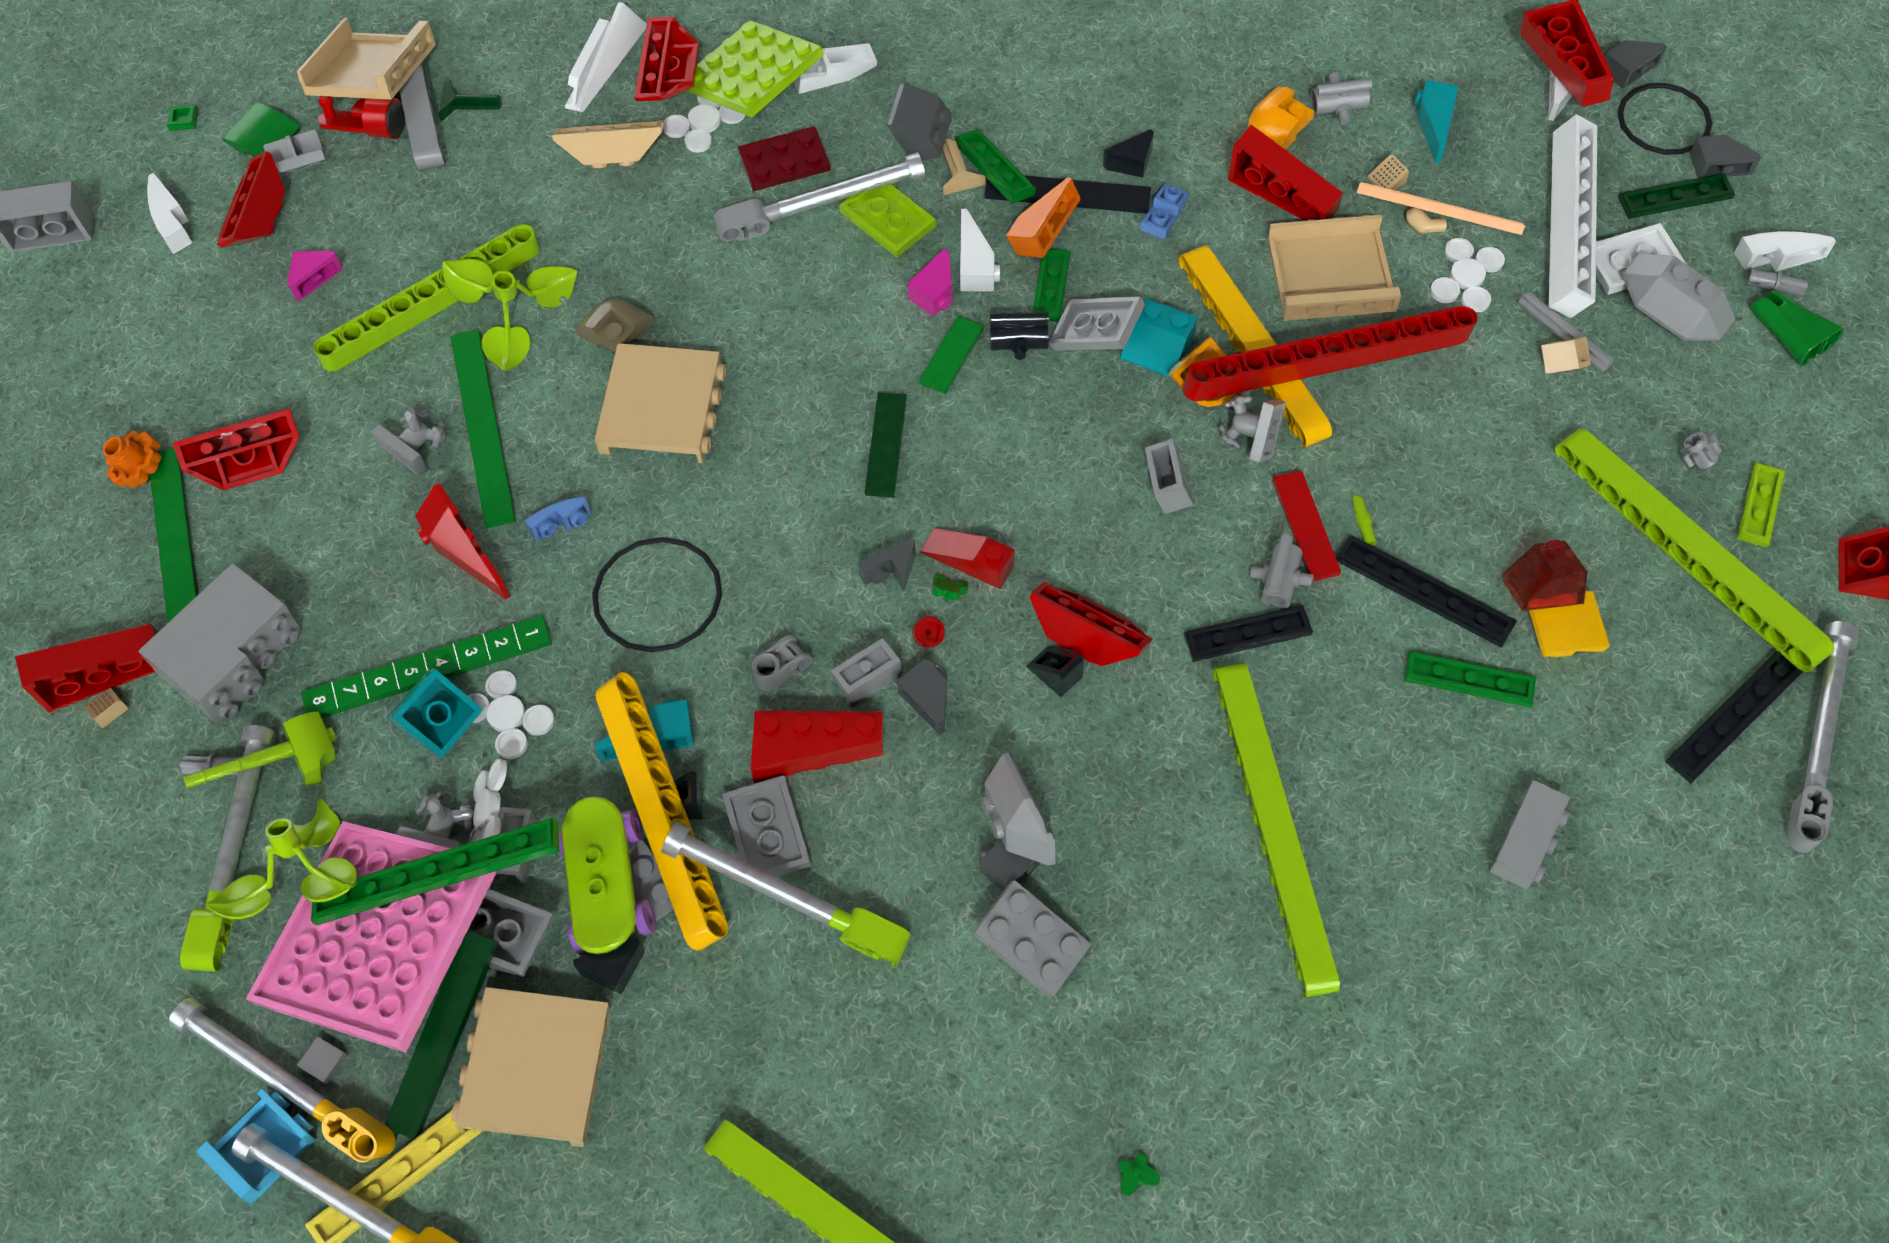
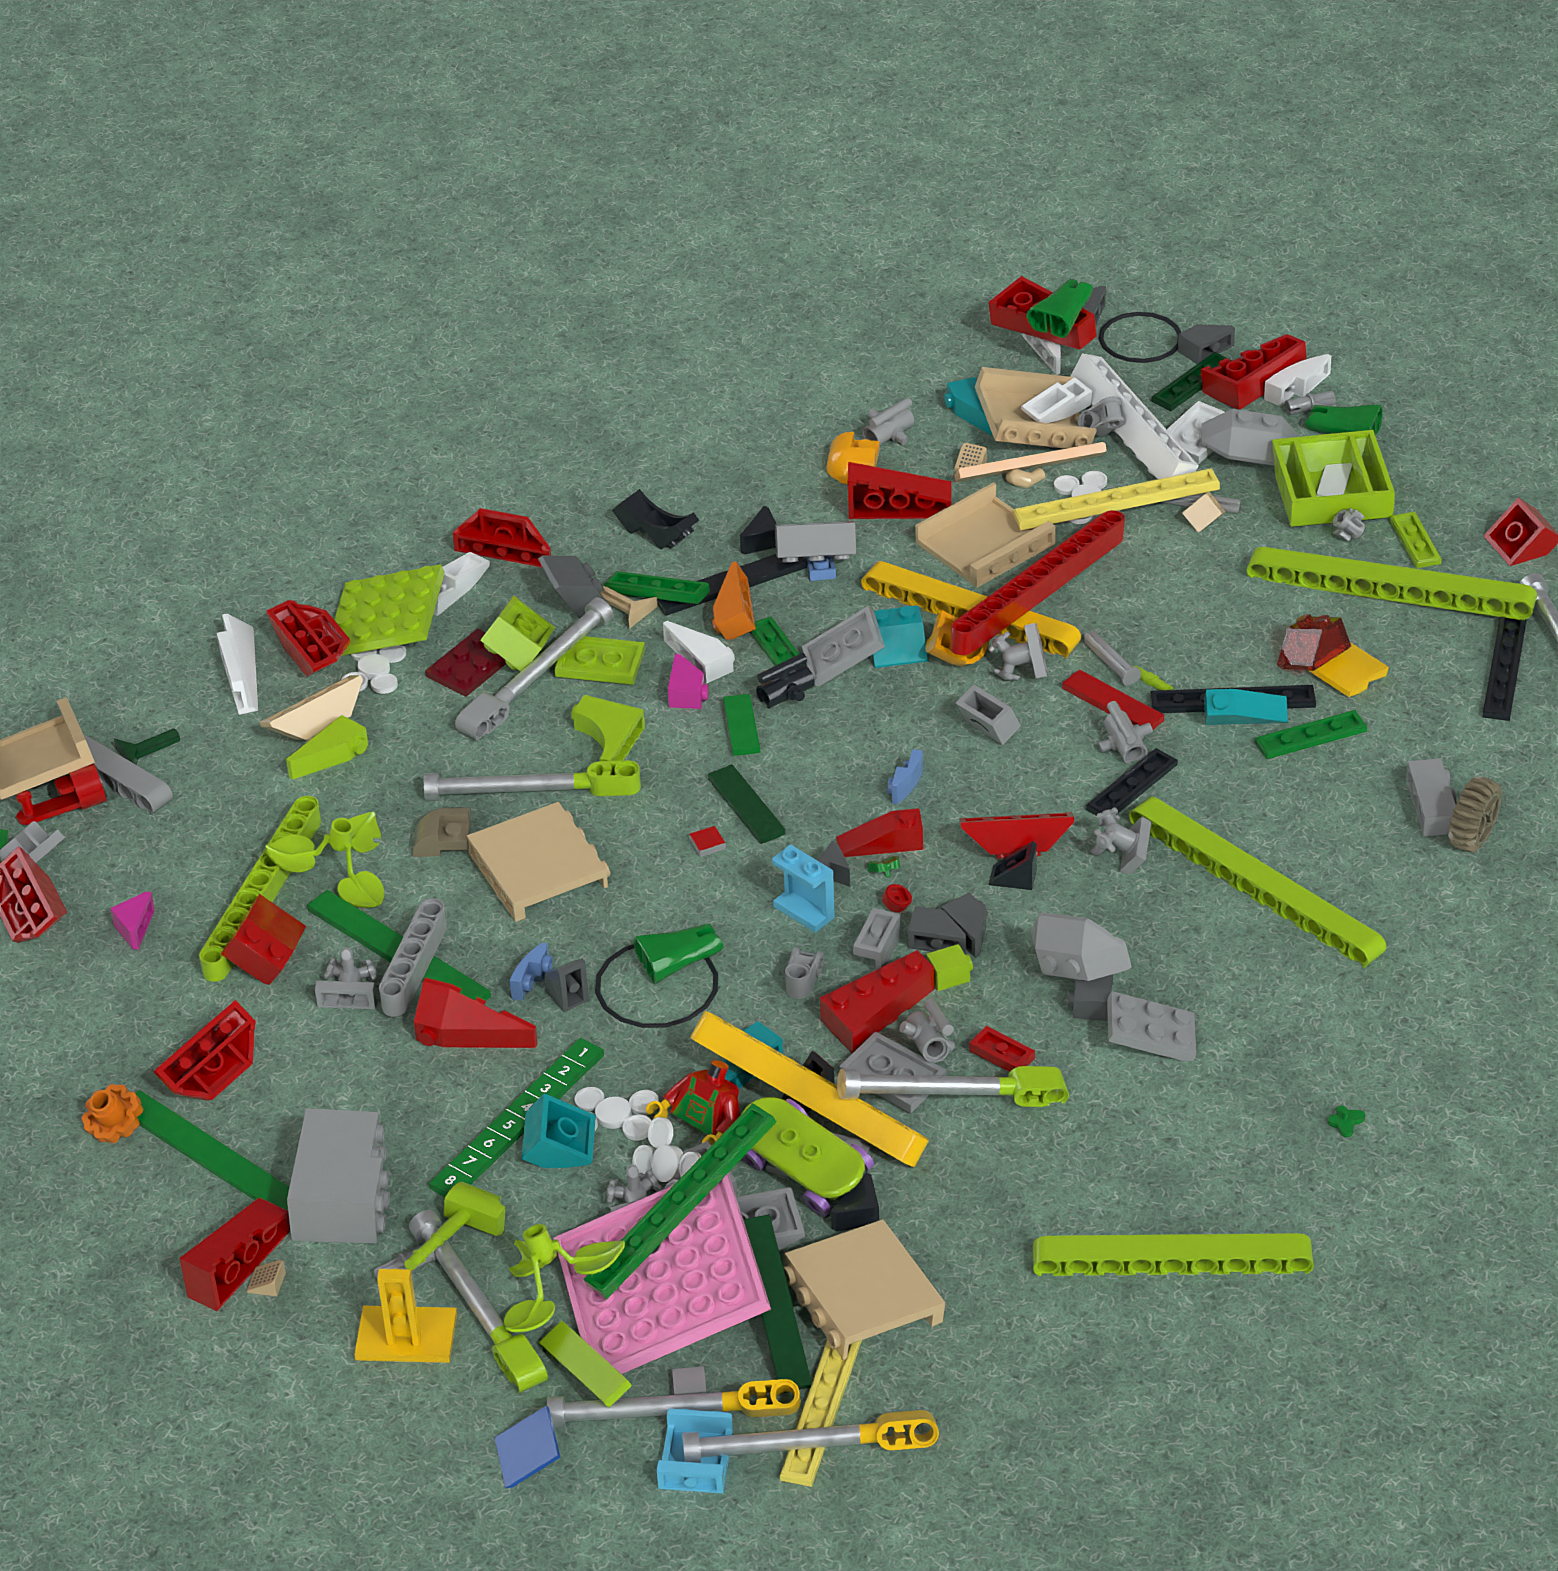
camera: 35 degrees left, 20 degrees down
(133, 1039) = (527, 1447): none -> piece
(152, 838) = (400, 1328): none -> yellow piece
(244, 985) = (585, 1364): none -> lime tile
(382, 352) = (264, 940): none -> red slope
(482, 434) = (413, 957): none -> light grey beam
(571, 552) = (568, 984): none -> dark grey slope
(571, 762) = (703, 1101): none -> red torso
(599, 183) = (330, 747): none -> lime slope
(689, 570) = (671, 951): none -> green piece
(784, 345) = (601, 779): none -> piece
(820, 465) = (707, 841): none -> red tile
(822, 811) = (926, 1032): none -> light grey pin
(834, 151) = (517, 634): none -> lime slope
(837, 300) = (610, 724): none -> lime arch
(839, 577) = (807, 889): none -> medium azure panel
(880, 870) = (1001, 1049): none -> red plate
(905, 45) = (501, 537): none -> red wedge
(907, 743) = (950, 967): none -> lime brick
(965, 702) = (971, 918): none -> dark grey slope
(1038, 504) = (906, 777): none -> medium blue slope
(1046, 96) = (662, 527): none -> black arch
(1162, 192) = (815, 540): none -> light grey brick
(1187, 705) = (1131, 841): none -> light grey piece
(1343, 475) = (1112, 658): none -> light grey axle
(1423, 612) = (1243, 707): none -> teal slope
(1485, 151) = (1004, 393): none -> tan panel
(1489, 296) = (1117, 499): none -> light yellow tile
(1513, 156) = (1059, 402): none -> white slope
(1543, 195) = (1103, 416): none -> light grey piece
(1550, 891) = (1475, 814): none -> dark tan gear
(1583, 55) = (1060, 308): none -> green piece
(1722, 220) = (1244, 378): none -> red wedge
(1726, 387) = (1299, 470): none -> lime slope
(1734, 384) = (1334, 479): none -> white tile

